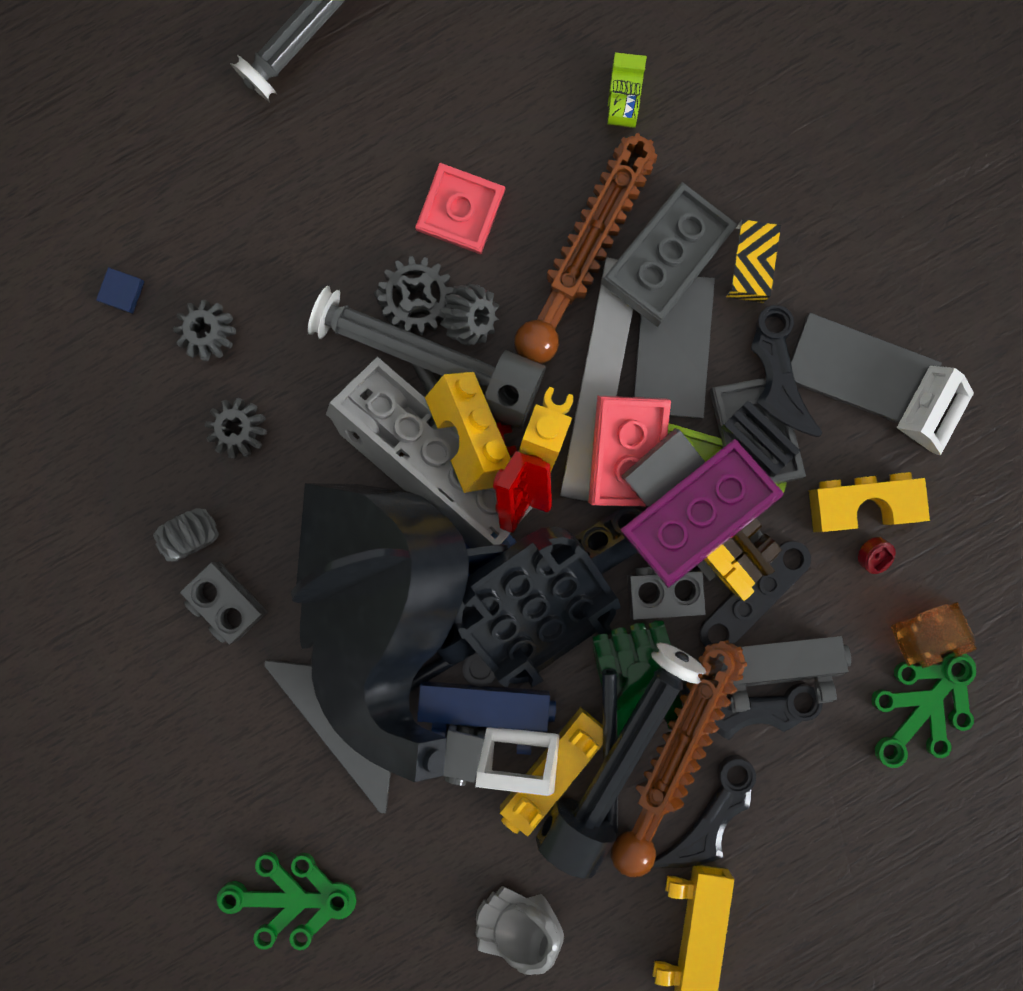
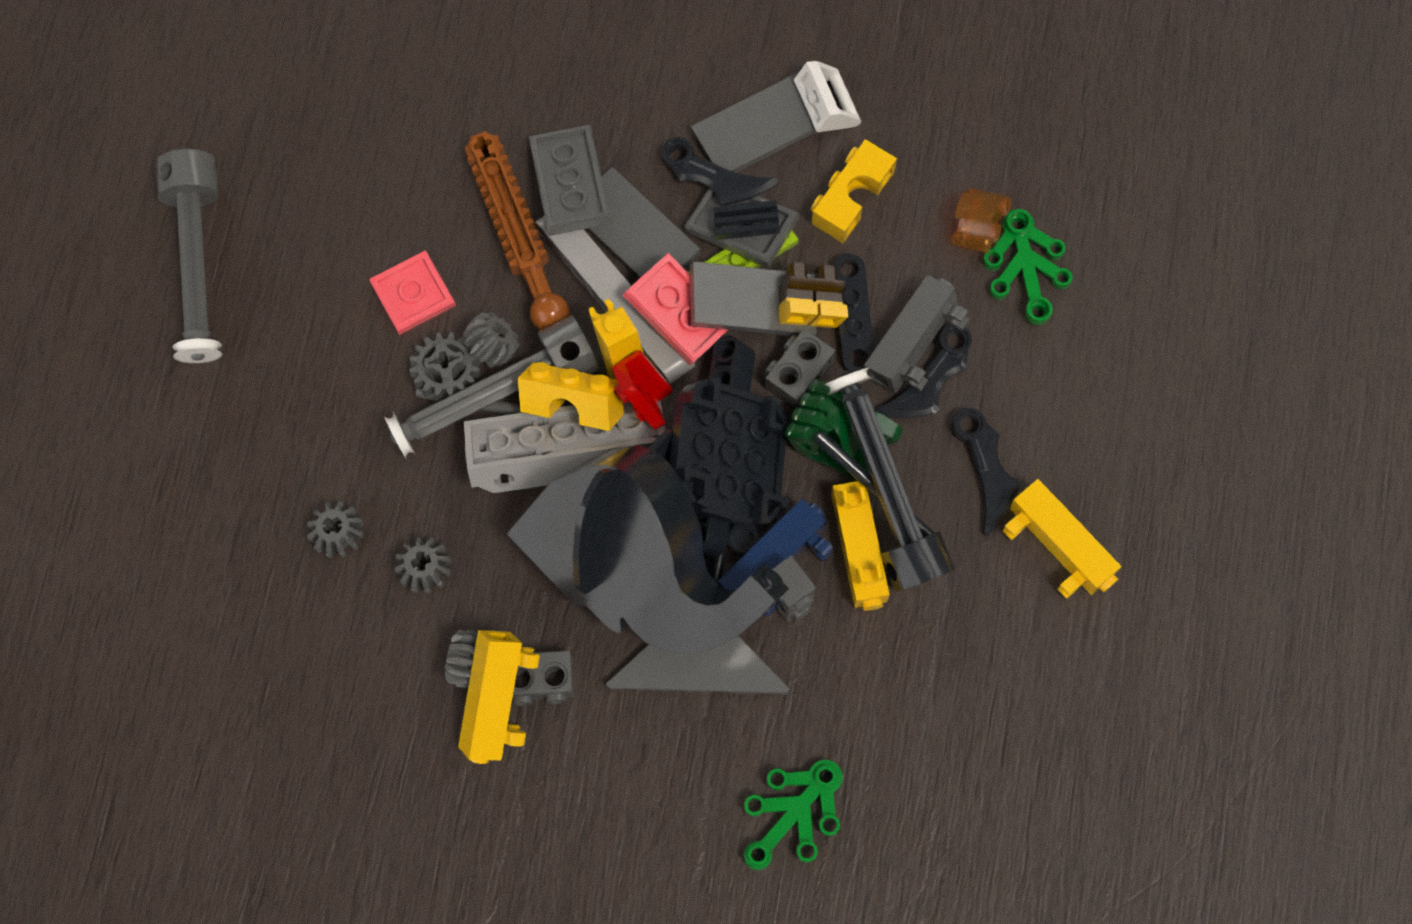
camera: 50 degrees left, 15 degrees down
(120, 290) = (251, 568): dark blue tile -> none
(168, 583) = (490, 696): none -> yellow brick
(517, 782) = (842, 564): white tile -> none
(519, 930) = (954, 661): light grey hair -> none
(625, 89) = (434, 121): lime leg -> none
(634, 850) = (963, 533): dark orange gear -> none
(702, 512) = (761, 292): magenta tile -> none
(755, 261) = (625, 131): sticker -> none
(876, 555) = (893, 213): dark red tile -> none

